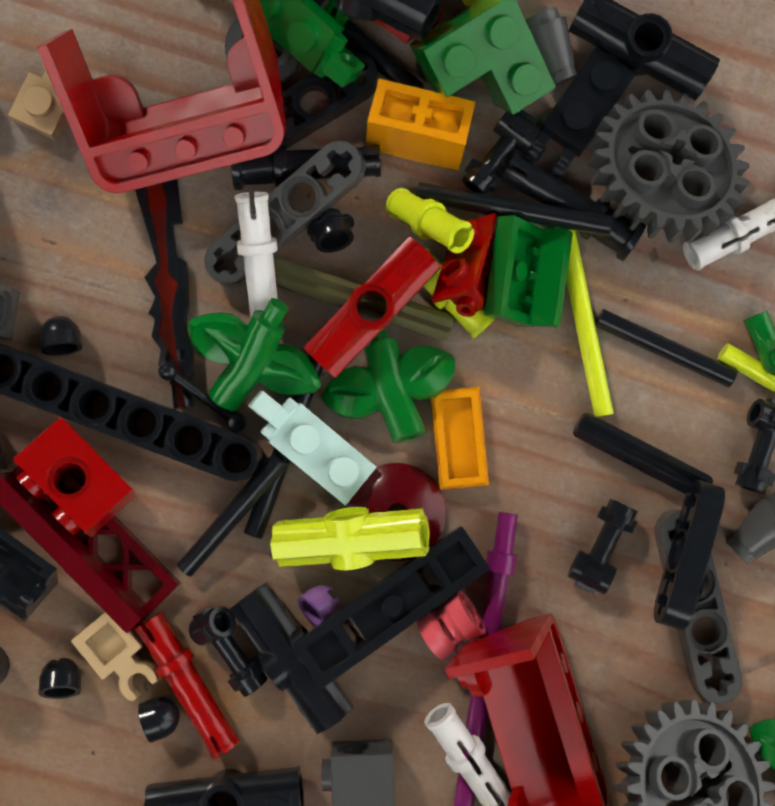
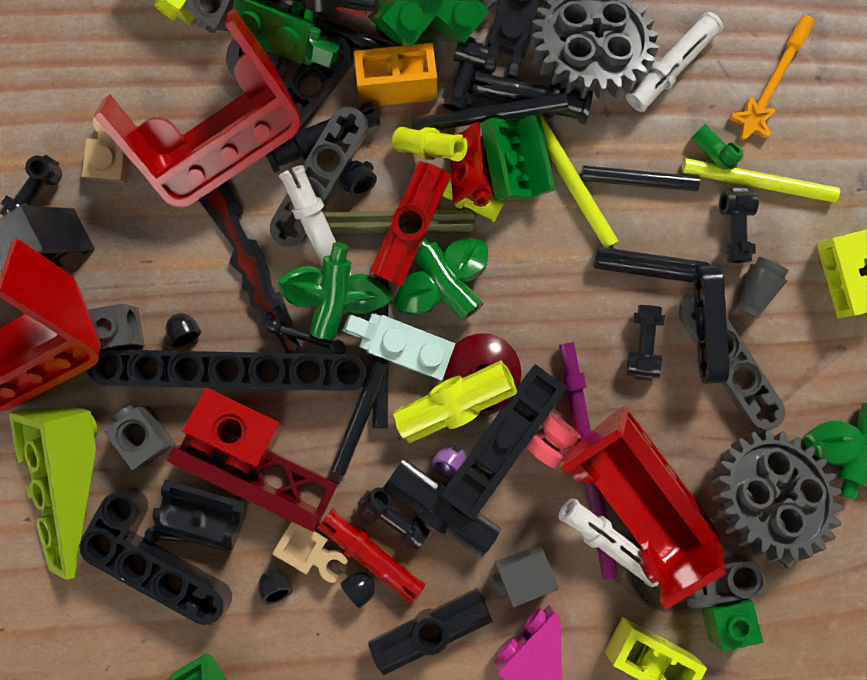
camera: 15 degrees left, 0 degrees up
(459, 438) = (509, 300): light orange tile -> none

